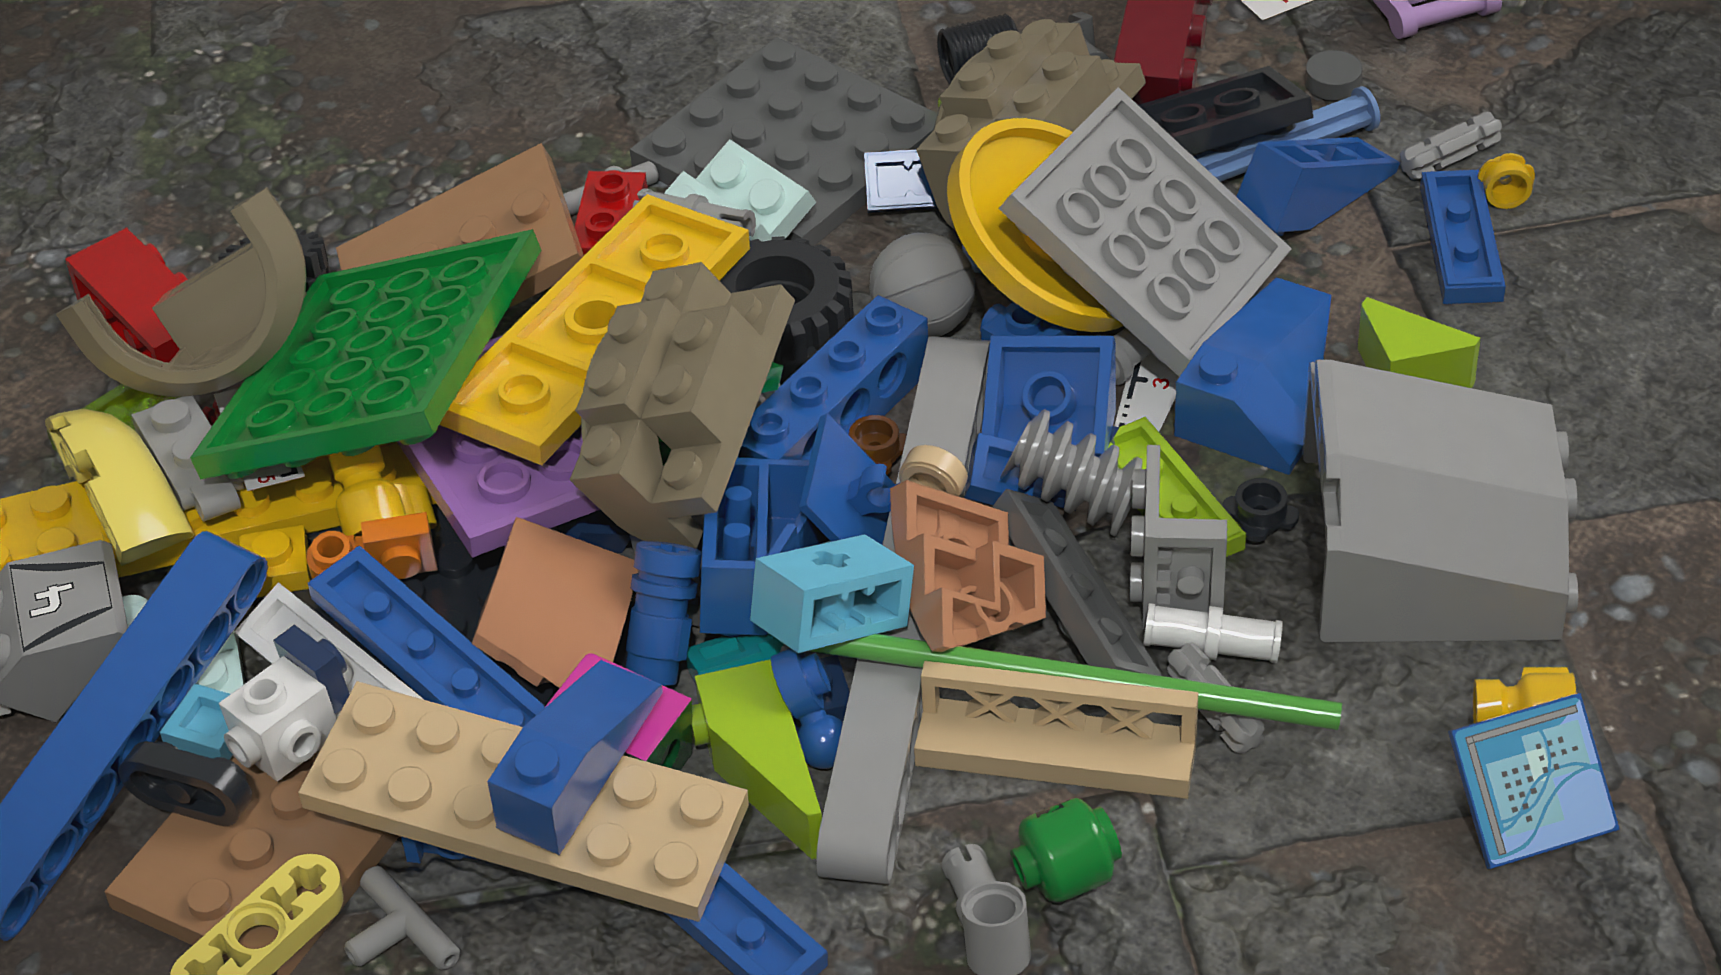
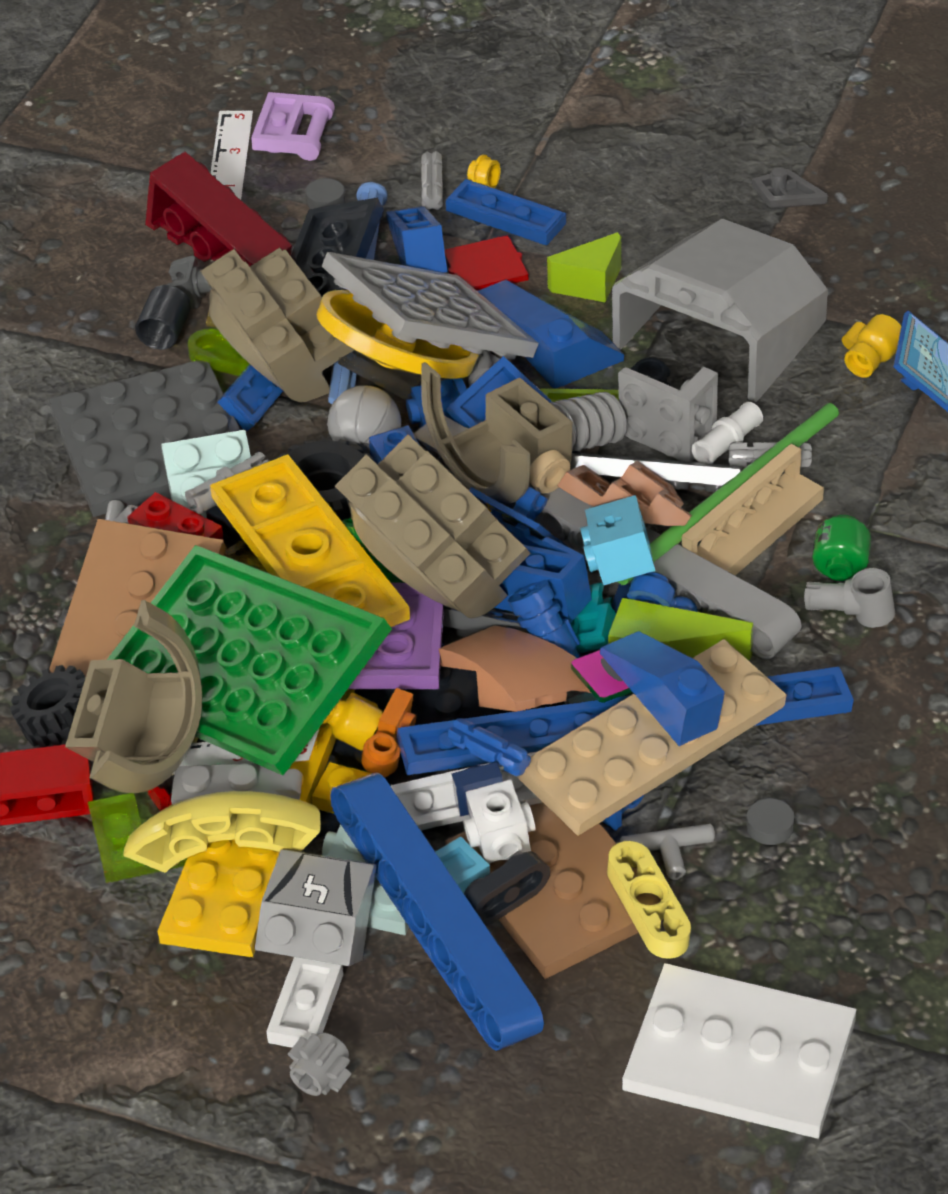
camera: 60 degrees left, 0 degrees up
(359, 638) = (489, 747): none -> blue axle
(965, 411) = (500, 450): none -> dark tan piece
(1347, 265) = (487, 262): none -> red piece

